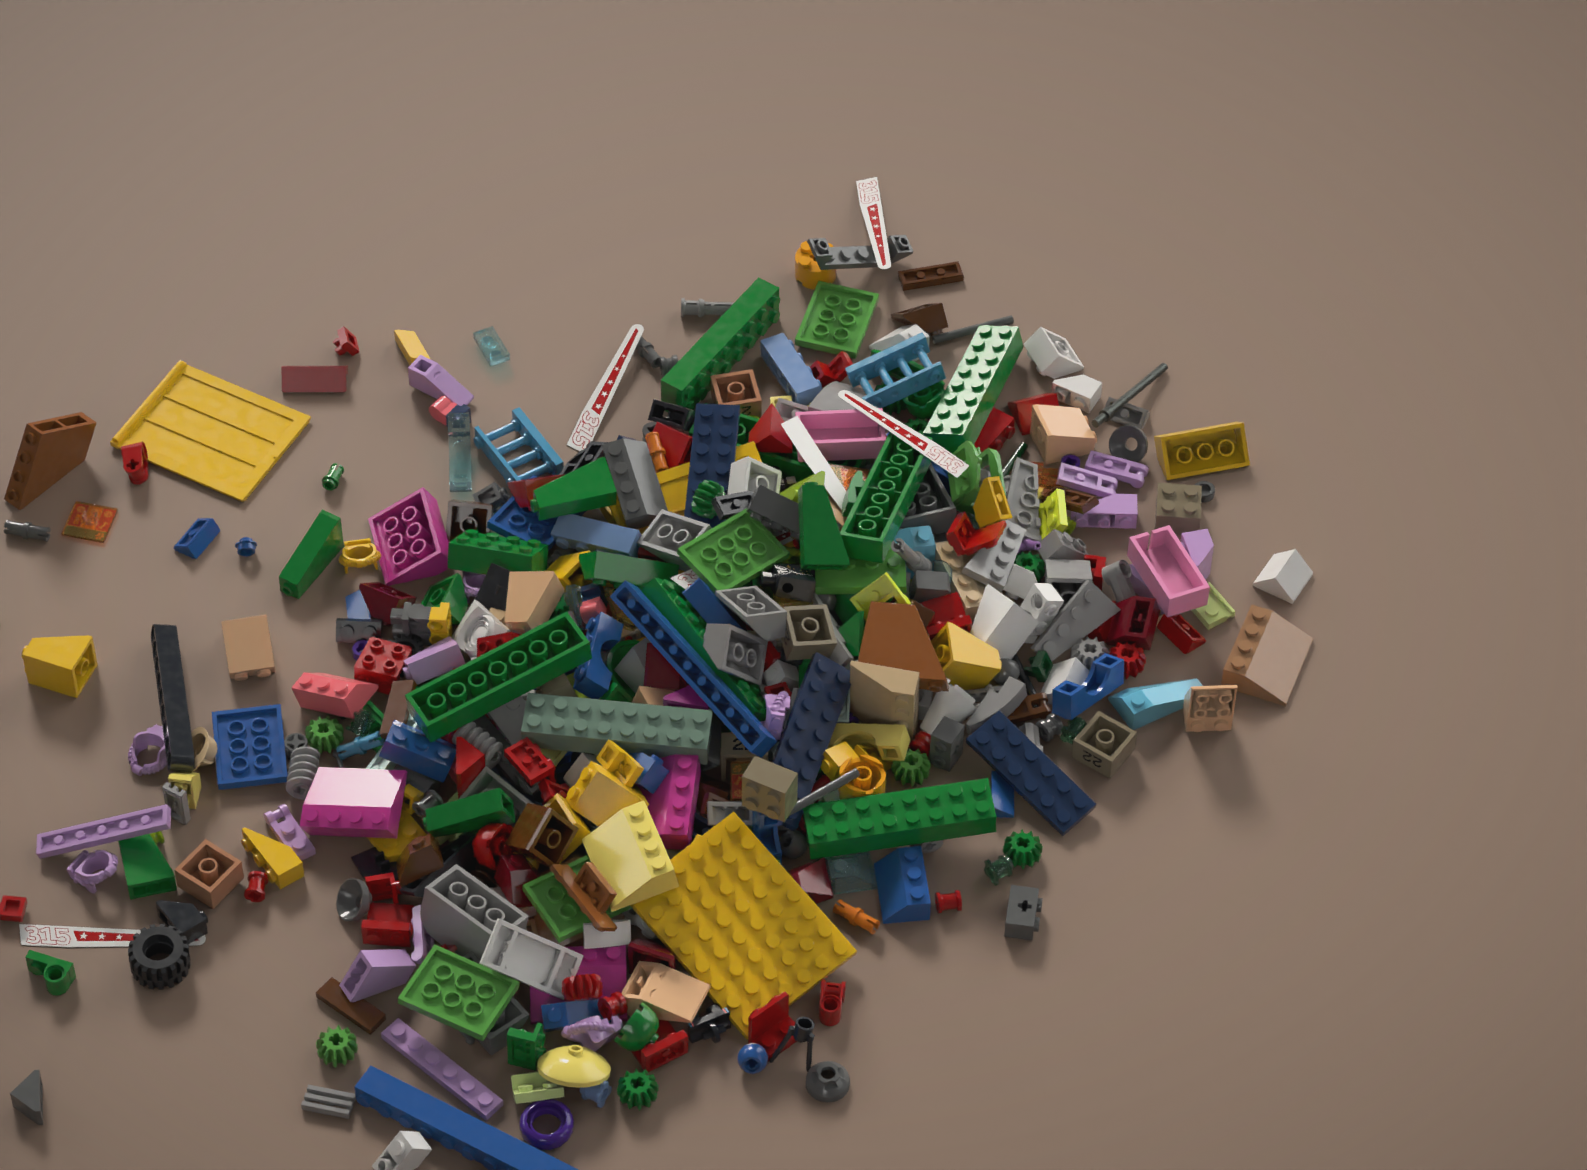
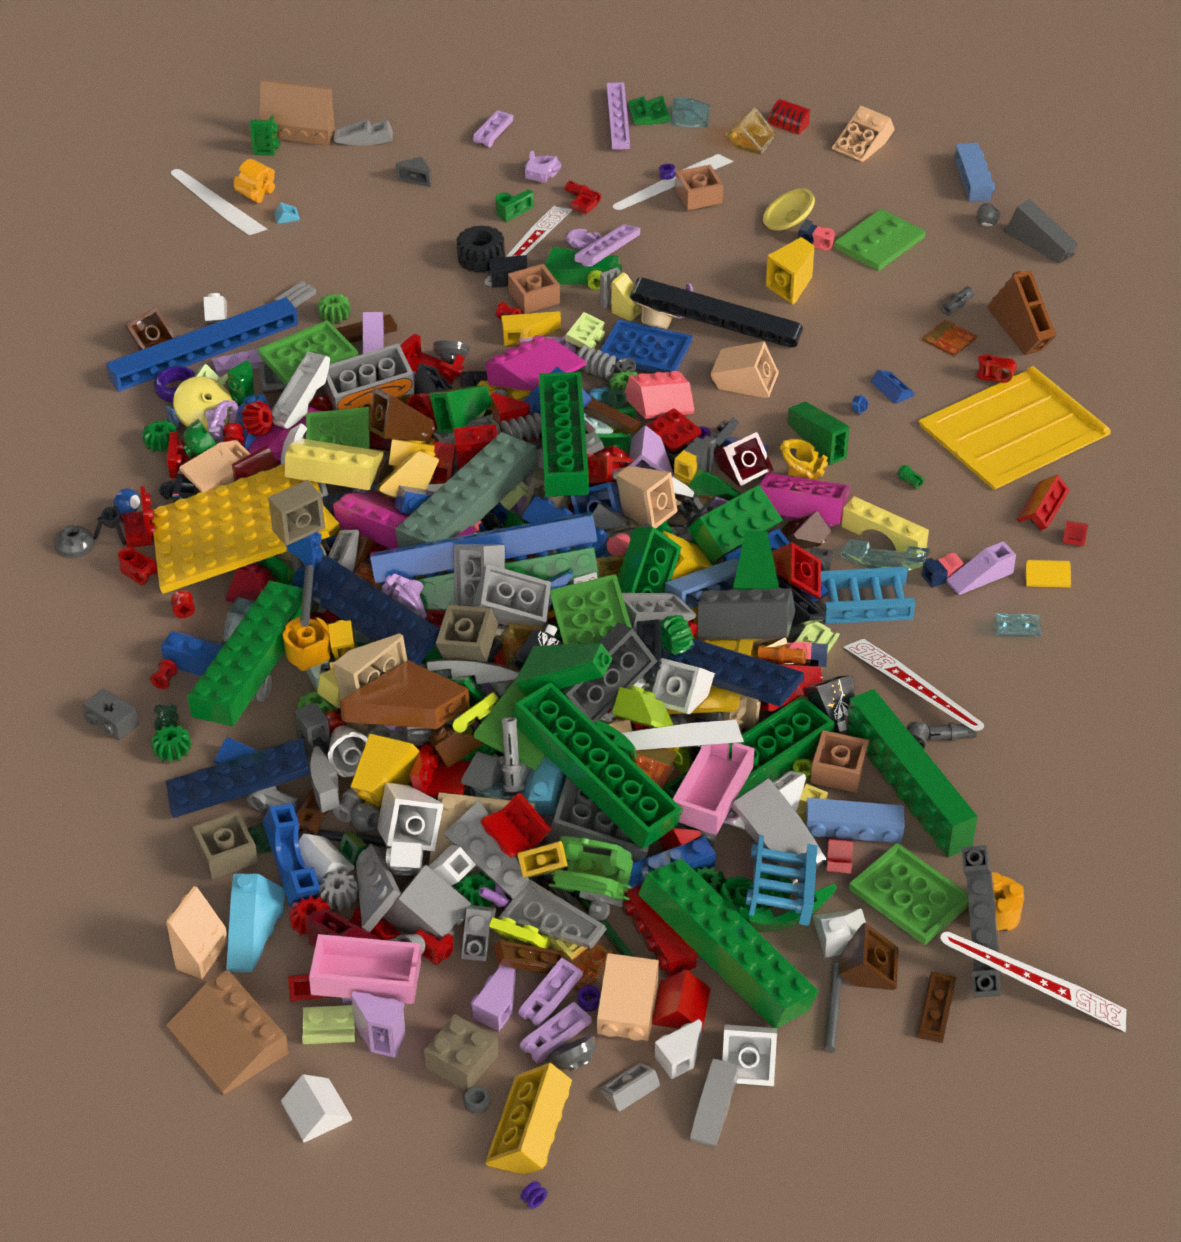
camera: 120 degrees right, 5 degrees down
(262, 796) = (586, 331): none -> yellowish green bracket
(419, 859) = (450, 376): reddish brown slope -> none
(425, 452) = (861, 515): none -> light yellow arch
(589, 891) = (322, 426): dark orange bracket -> none
(620, 763) = (431, 479): yellow slope -> none
(702, 308) = (987, 792): light grey pin -> none
(769, 433) = (758, 739): red slope -> none
(856, 916) = (201, 614): orange pin -> none
(856, 933) = (182, 604): none -> red wheel
(911, 437) = (655, 814): sticker -> none
(1108, 357) = (714, 1102): none -> light grey slope
(1108, 412) = (622, 1043): pearl dark grey bar -> none
(1256, 423) = (534, 1194): none -> dark purple bush

